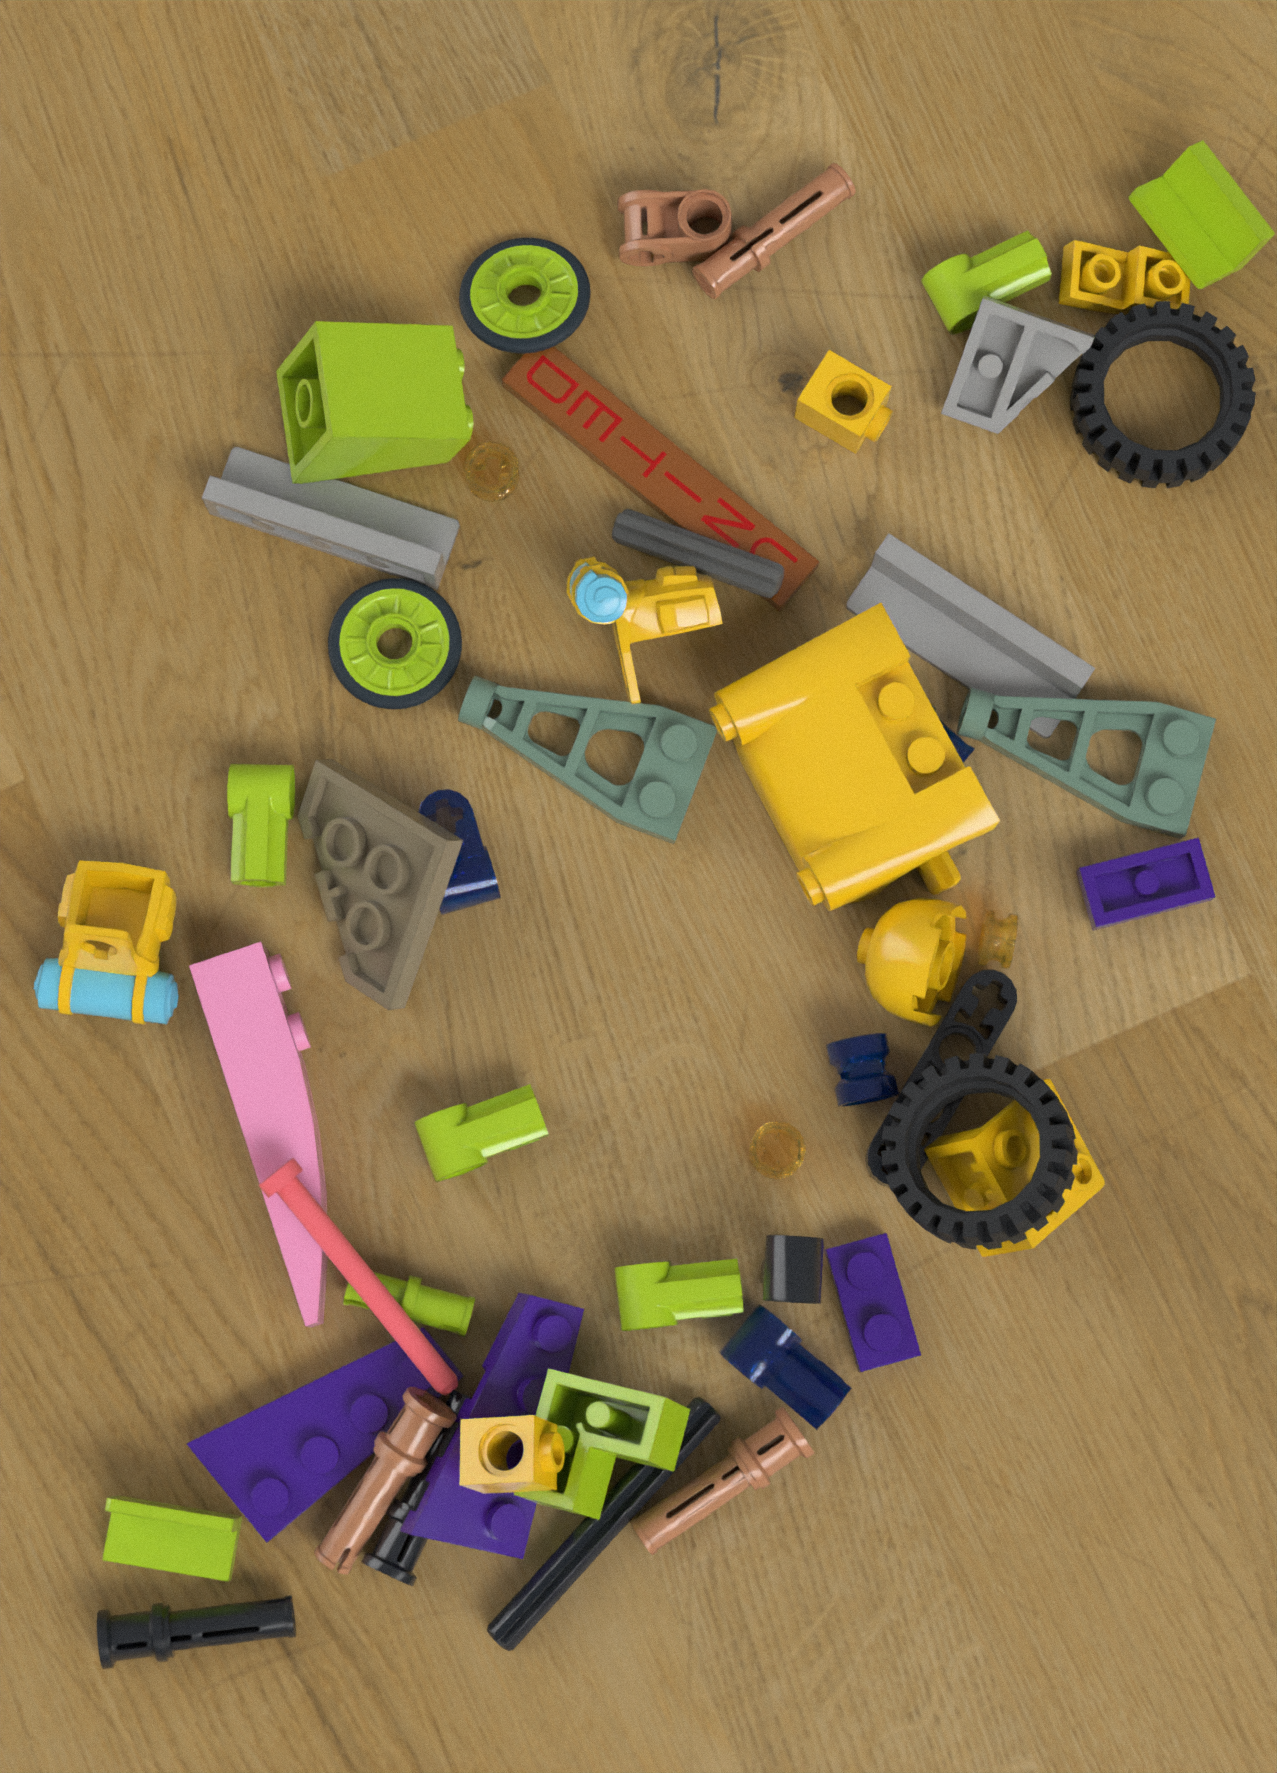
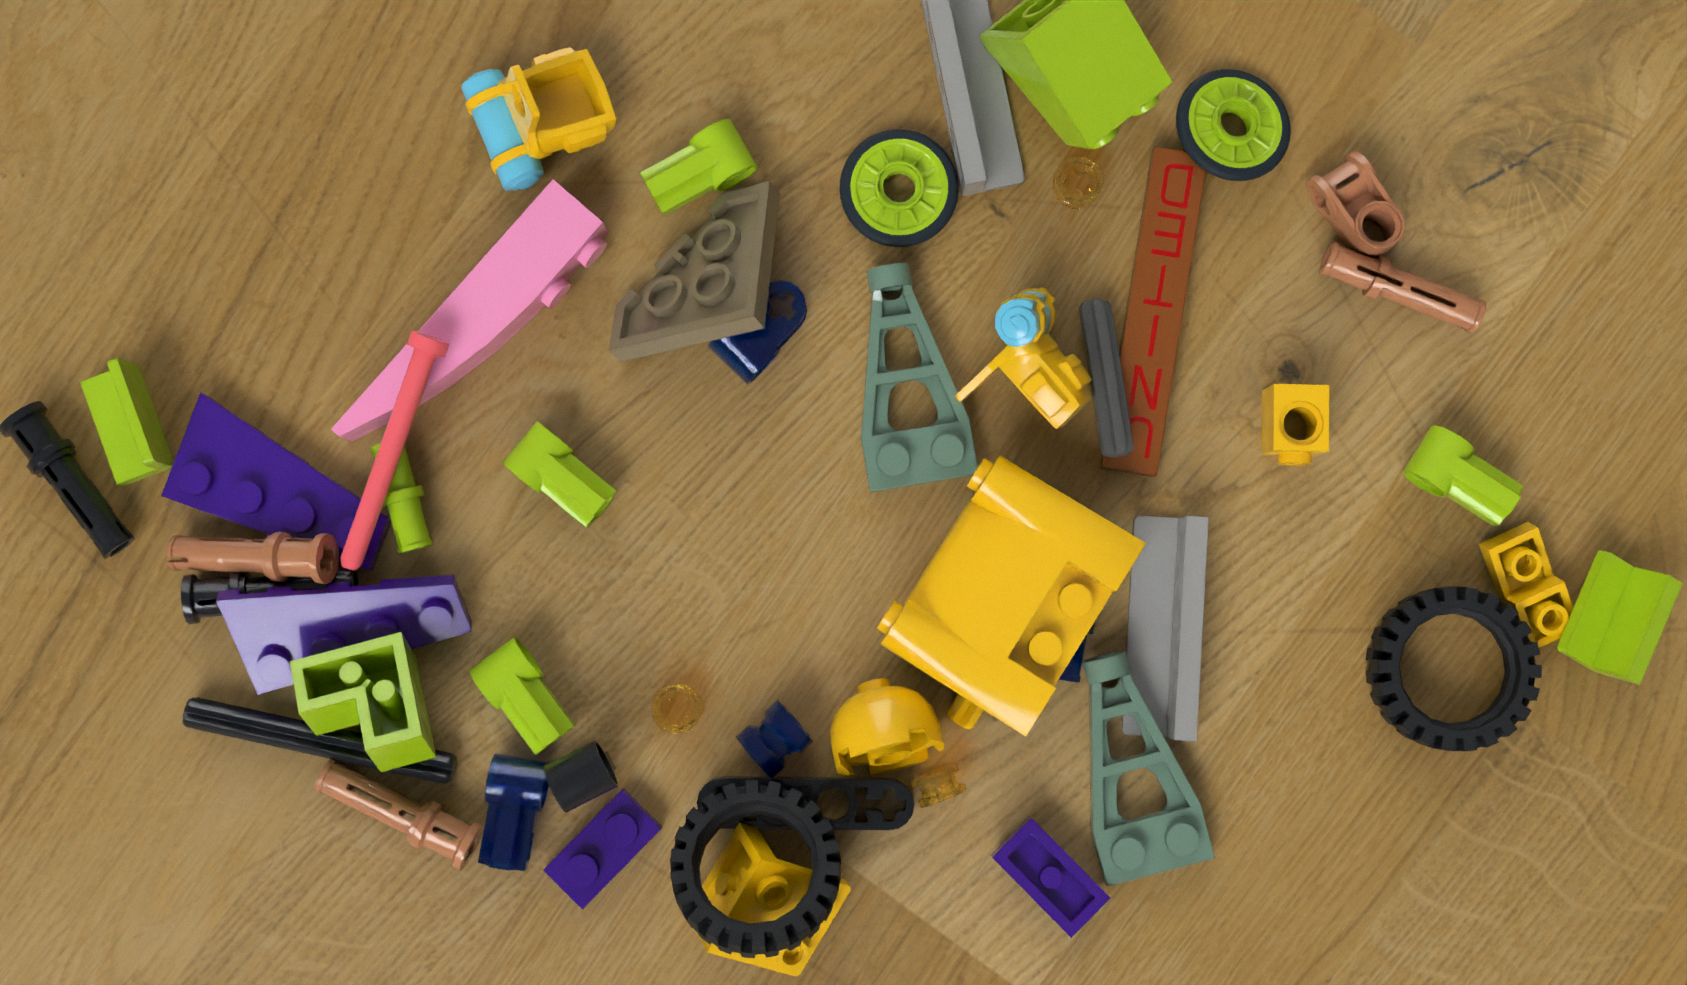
camera: 55 degrees right, 5 degrees up
(485, 1449) = (300, 624): yellow brick -> none
(1009, 363) = (1404, 532): light grey wing -> none

